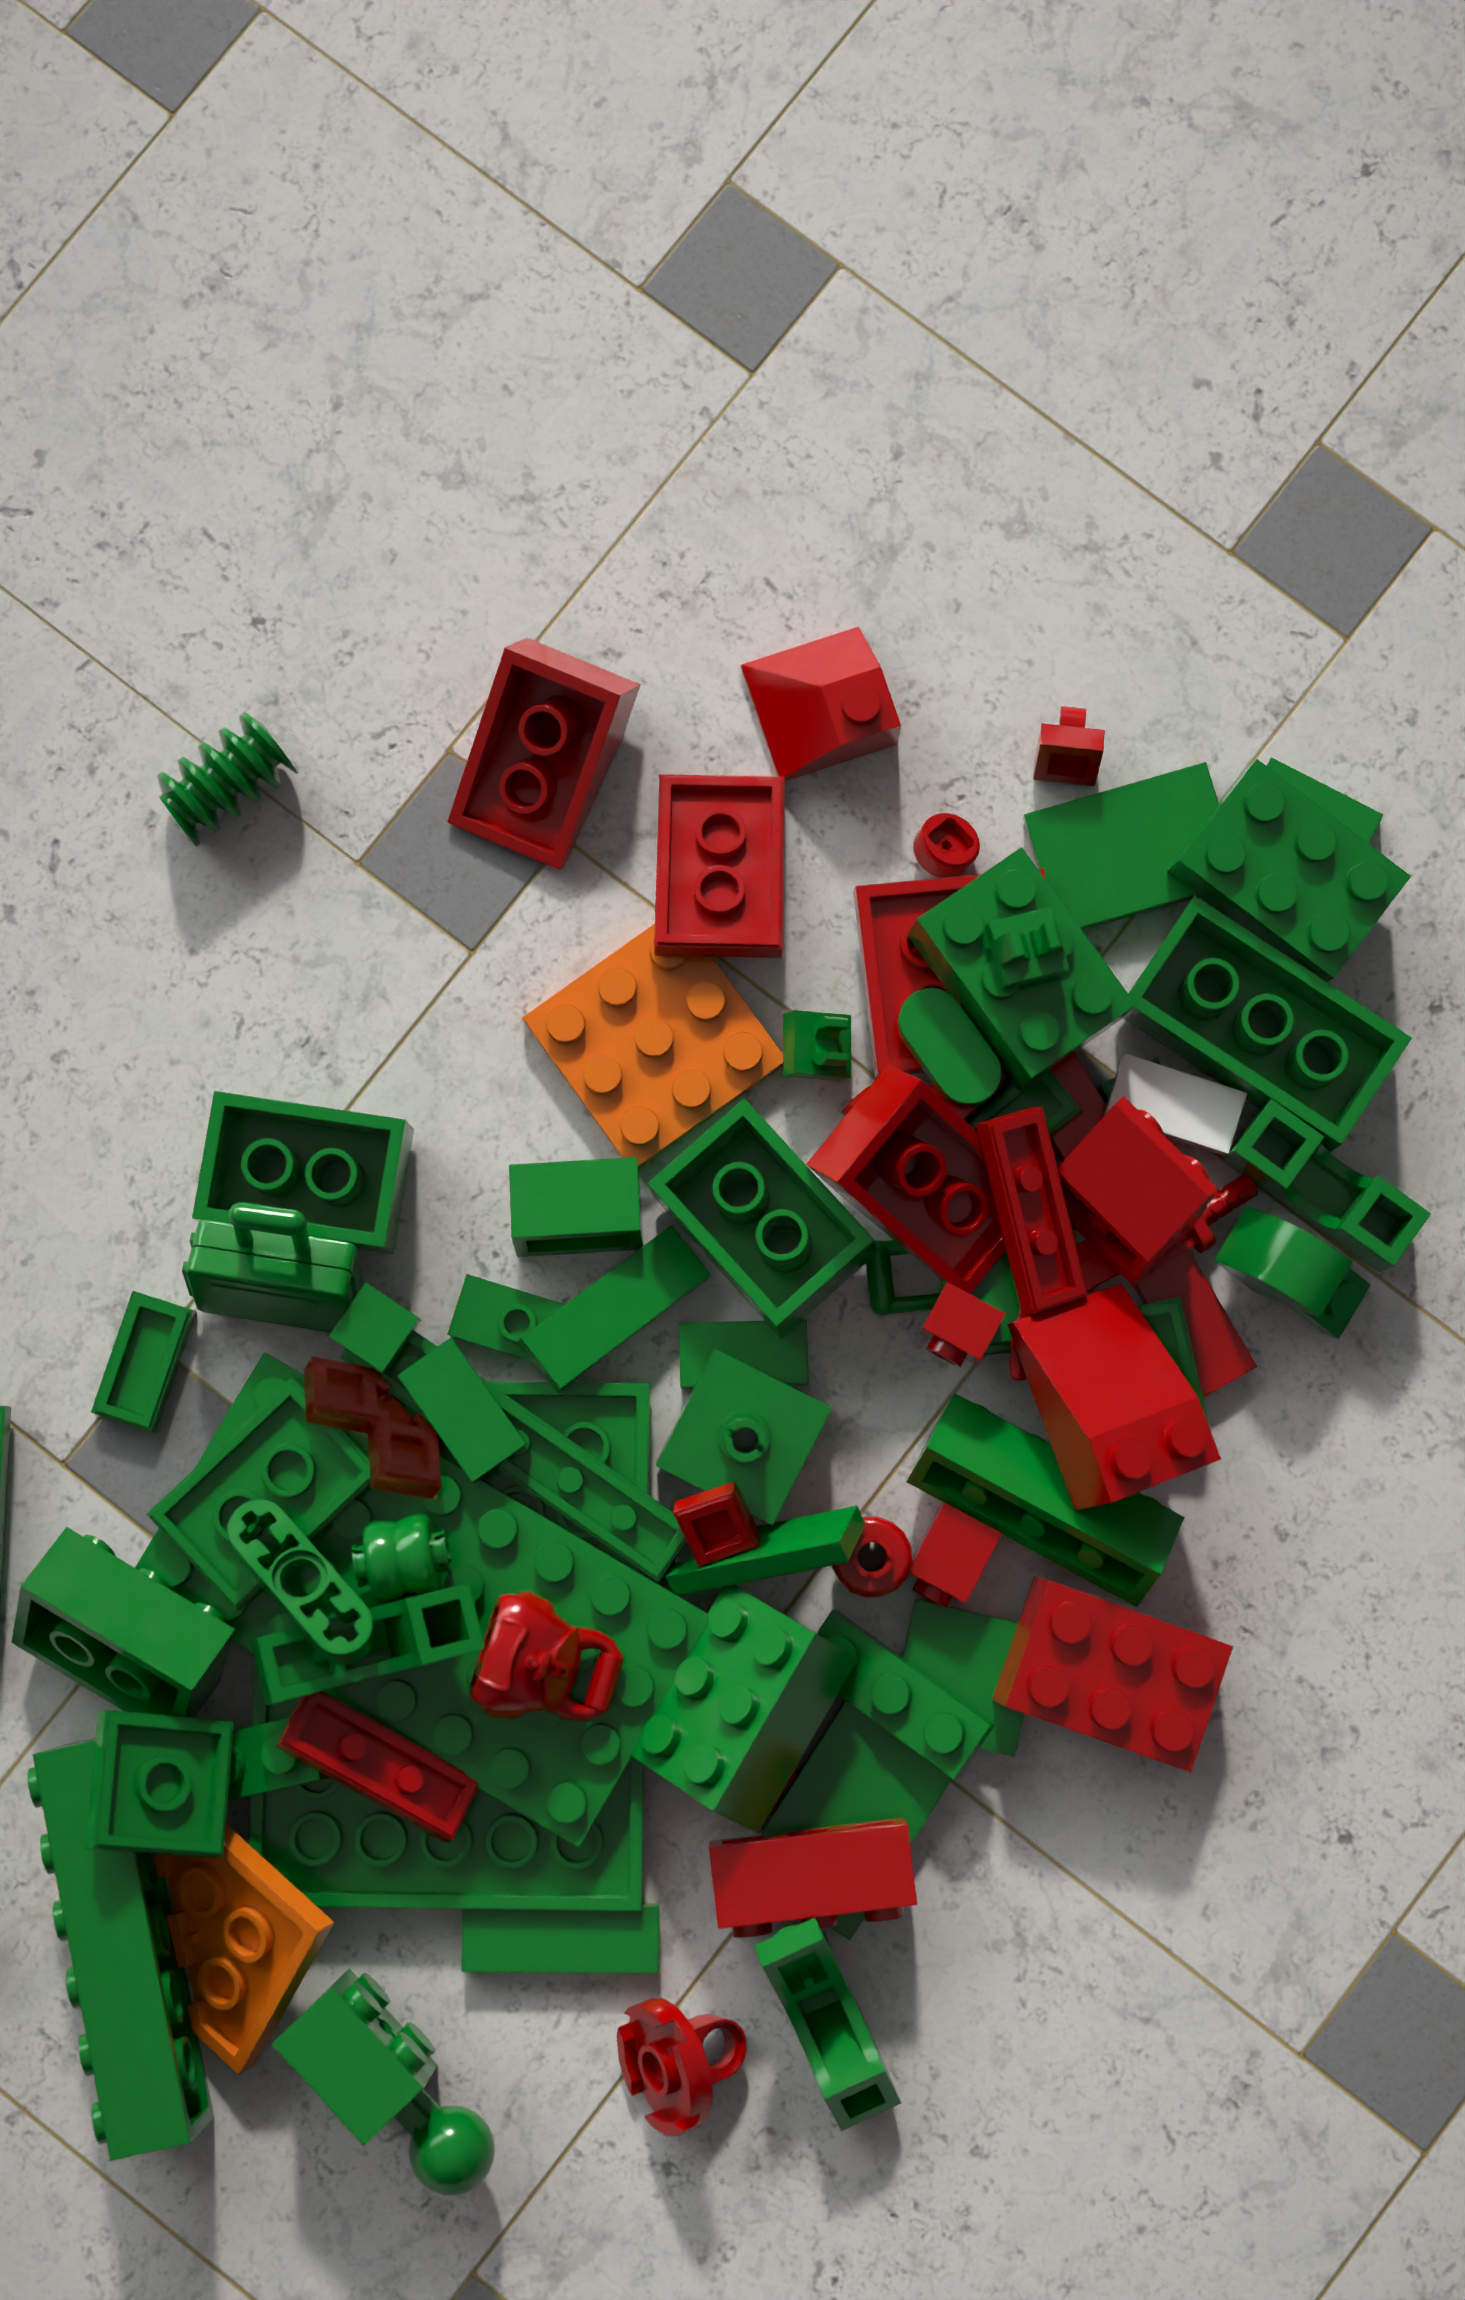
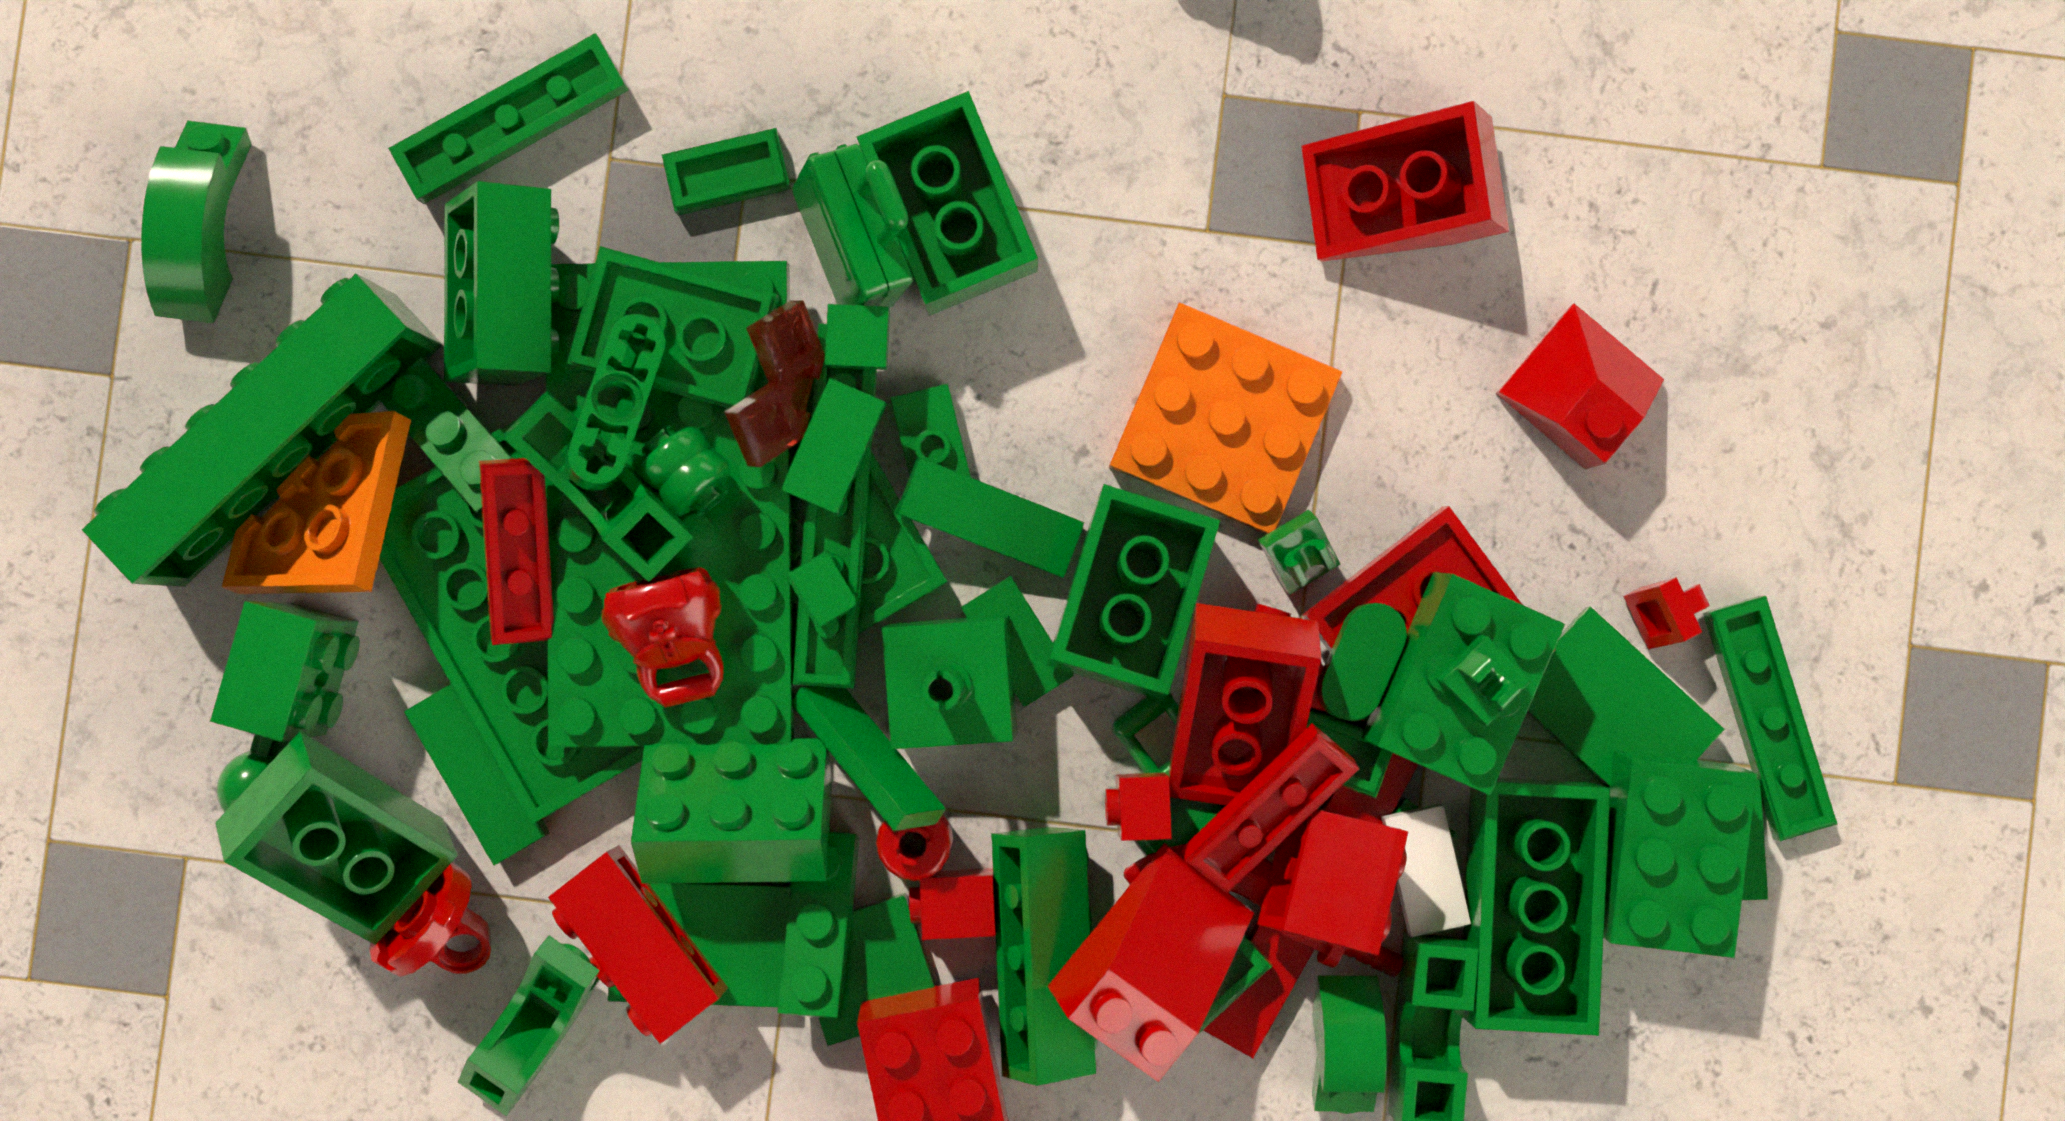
camera: 55 degrees right, 5 degrees up
(159, 1785) = (392, 388): green tile -> none
(544, 2098) = (335, 839): none -> green brick
(575, 1207) = (1053, 437): green brick -> none
(588, 1496) = (822, 589): none -> green slope
(716, 1524) = (865, 704): red tile -> none
(719, 866) = (1398, 386): red tile -> none
(946, 845) = (1526, 558): red tile -> none
(1221, 715) = (1770, 718): none -> green tile

